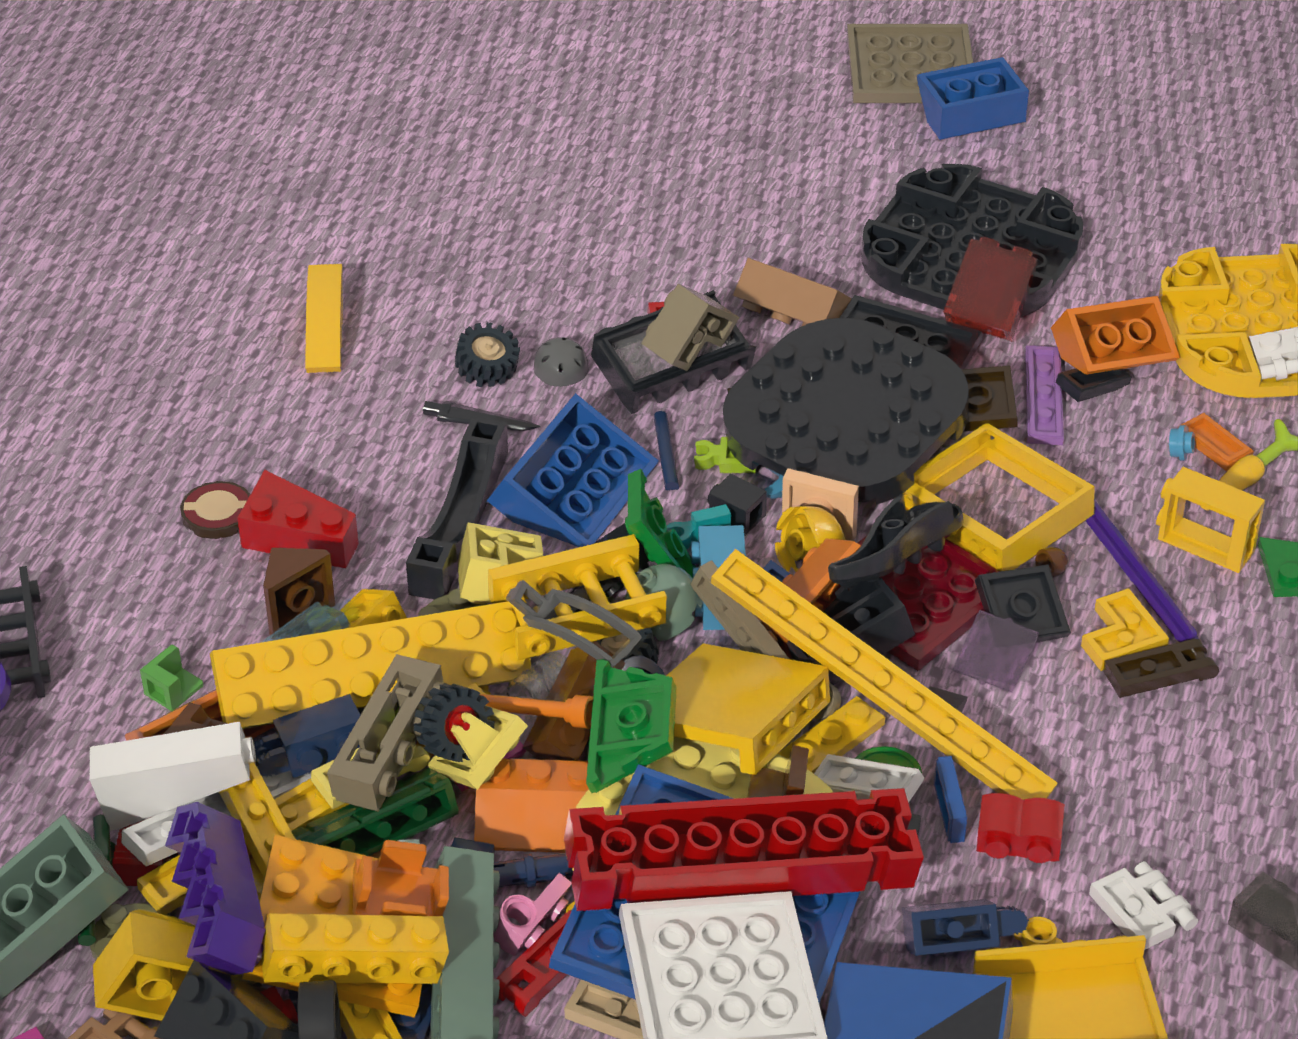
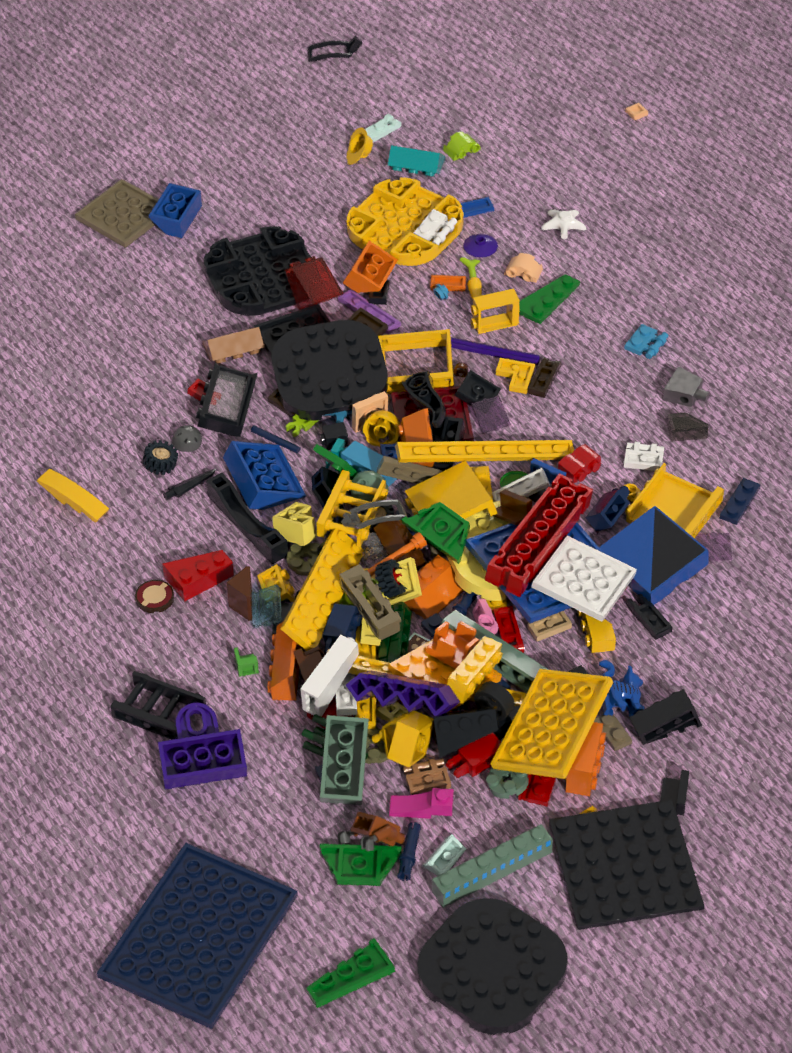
camera: 50 degrees left, 5 degrees up
(686, 325) = (236, 383): dark tan brick -> none

